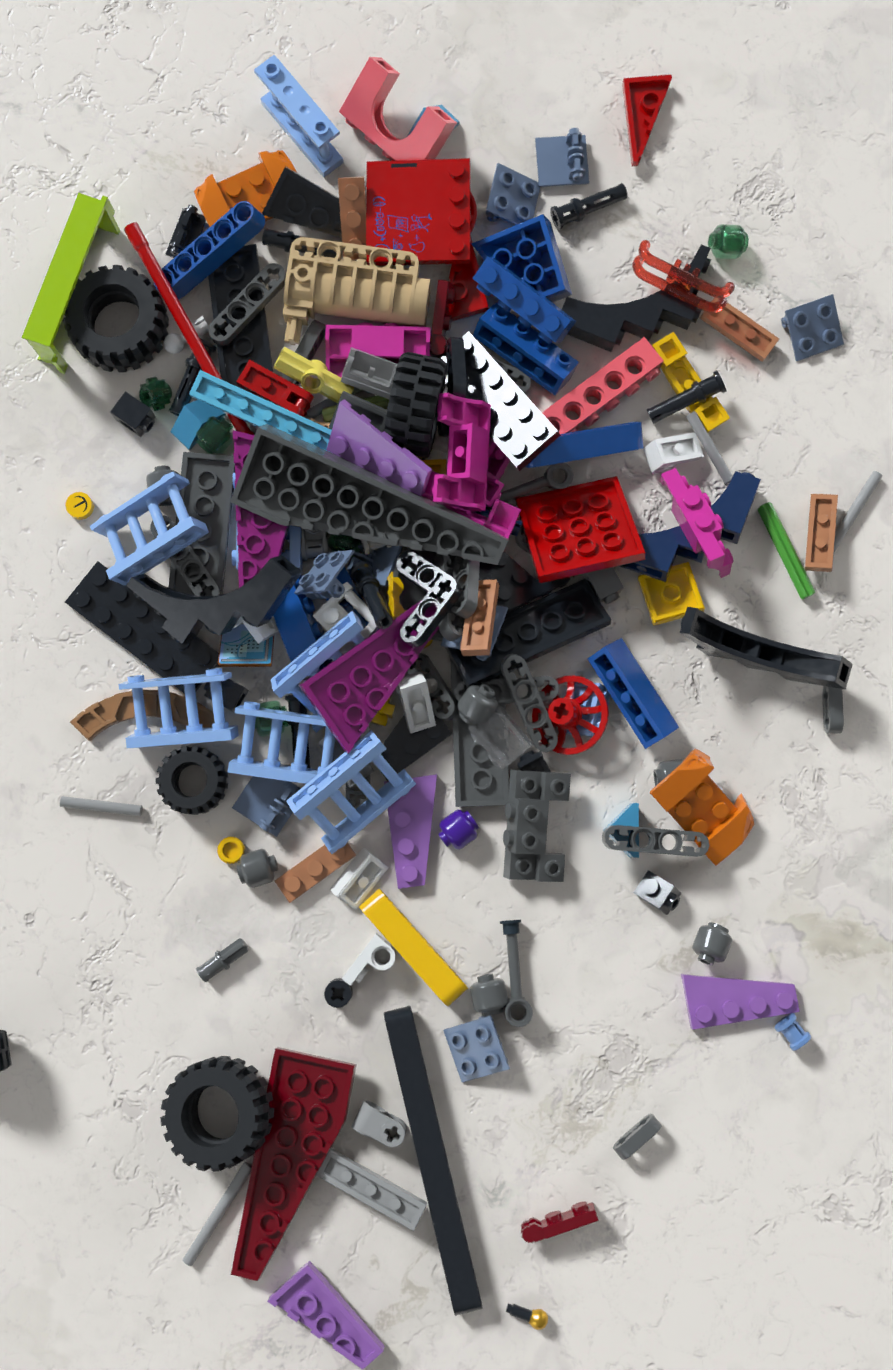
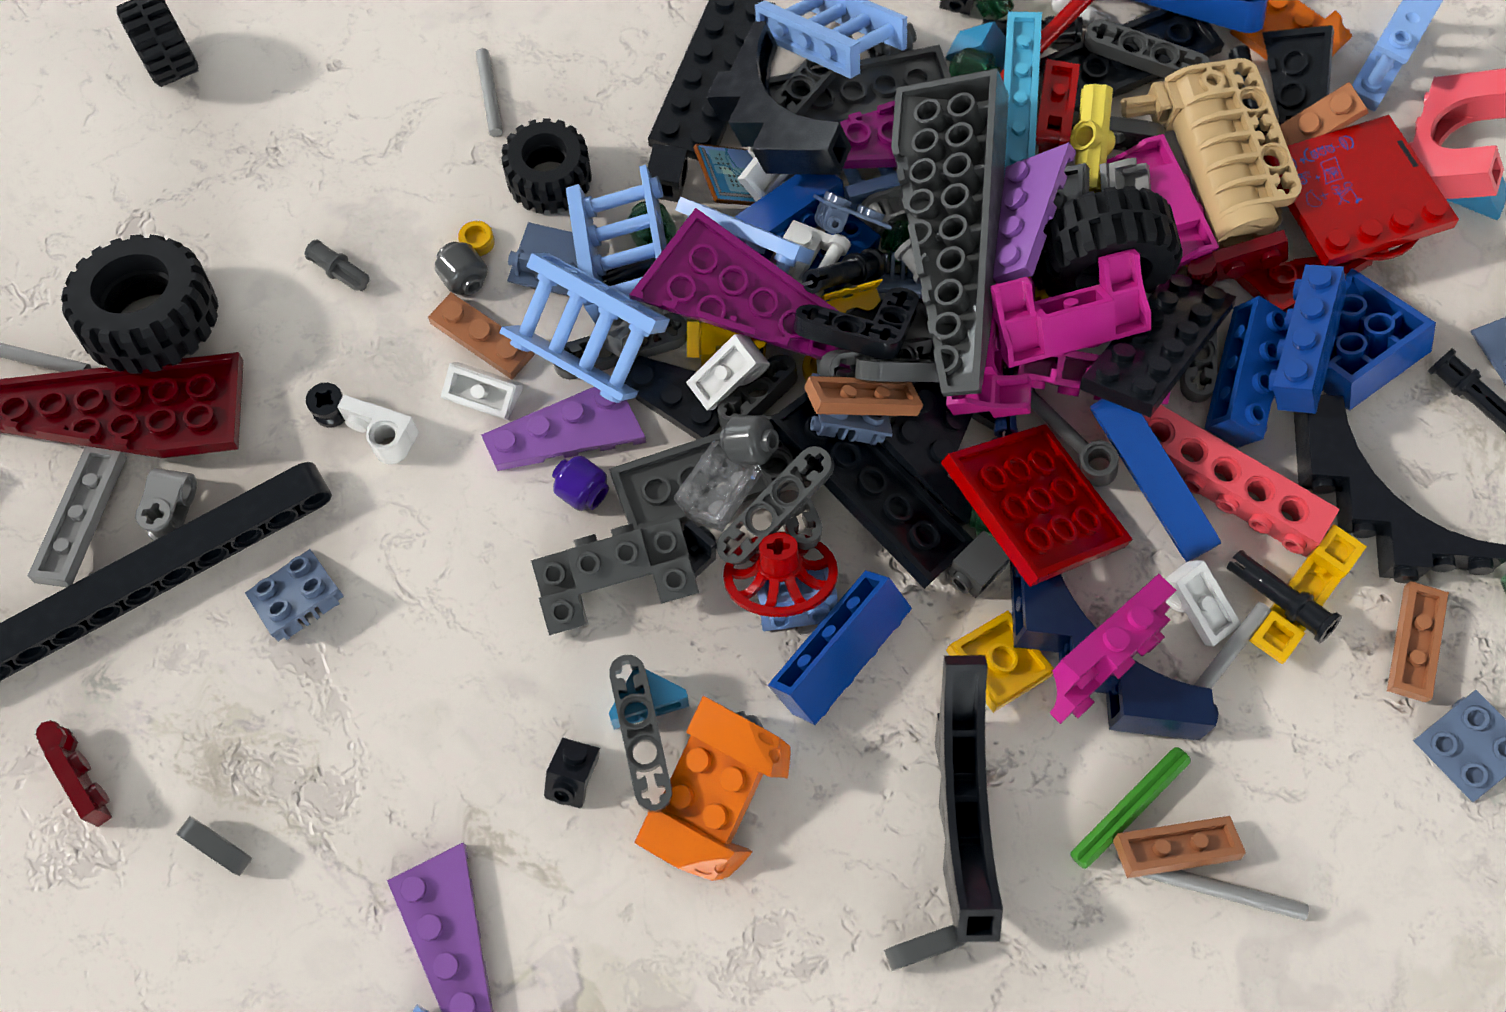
camera: 75 degrees right, 15 degrees down
(121, 708) = (624, 99): medium nougat tile -> none
(168, 733) = (607, 147): light blue fence -> none
(413, 947) = (407, 476): yellow beam -> none
(455, 374) = (1181, 279): black beam -> none
(489, 995) = (368, 587): dark grey head -> none
(511, 929) = (465, 589): dark grey piece -> none
(512, 196) = (1443, 296): sand blue hinge -> none
(680, 281) = (1443, 527): clear red piece -> none
(712, 943) = (518, 869): dark grey head -> none

